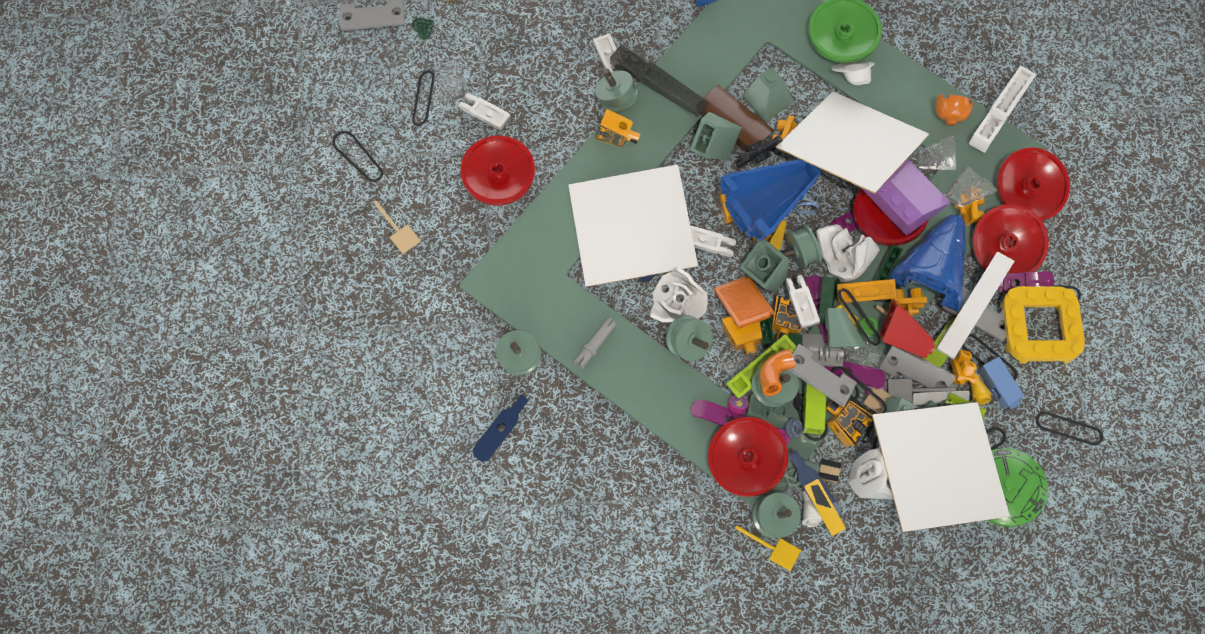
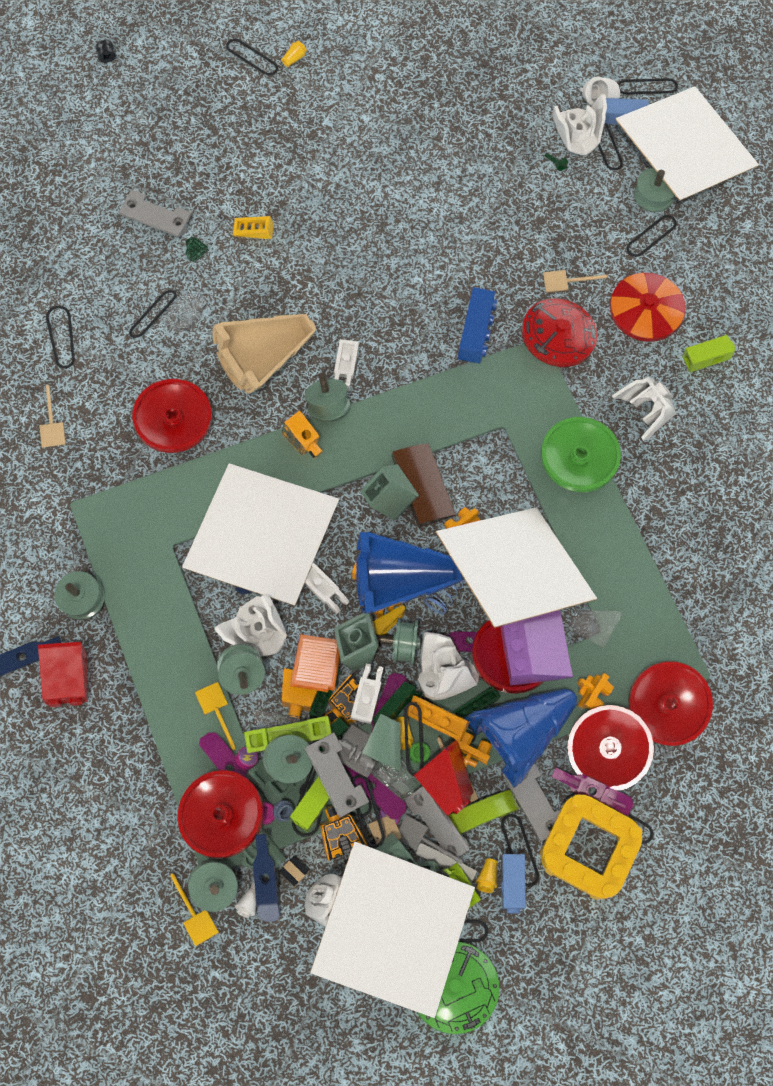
camera: 25 degrees right, 0 degrees up
(485, 111) = (199, 356): white hinge -> none
(534, 80) = (259, 347): none -> tan cone
(548, 420) = (63, 673): none -> red slope
(589, 350) = (153, 625): light grey pin -> none
(658, 80) = (371, 410): clear smoke slope -> none
(679, 375) = (212, 699): none -> yellow piece
(759, 151) = (421, 527): black bar -> none
(768, 95) = (470, 478): sand green slope -> none
(772, 369) = (286, 743): orange cylinder -> none
(825, 507) = (264, 905): yellow sticker -> none
(855, 72) = (565, 501): white piece -> none
(953, 108) = (636, 587): orange cylinder -> none
(963, 368) = (484, 845): light orange hips -> none
(969, 188) = (599, 672): clear slope -> none
(975, 305) = (533, 791): white slope -> none
(1002, 109) = (689, 612): white slope -> none
(1066, 435) = (547, 970): black piece -> none

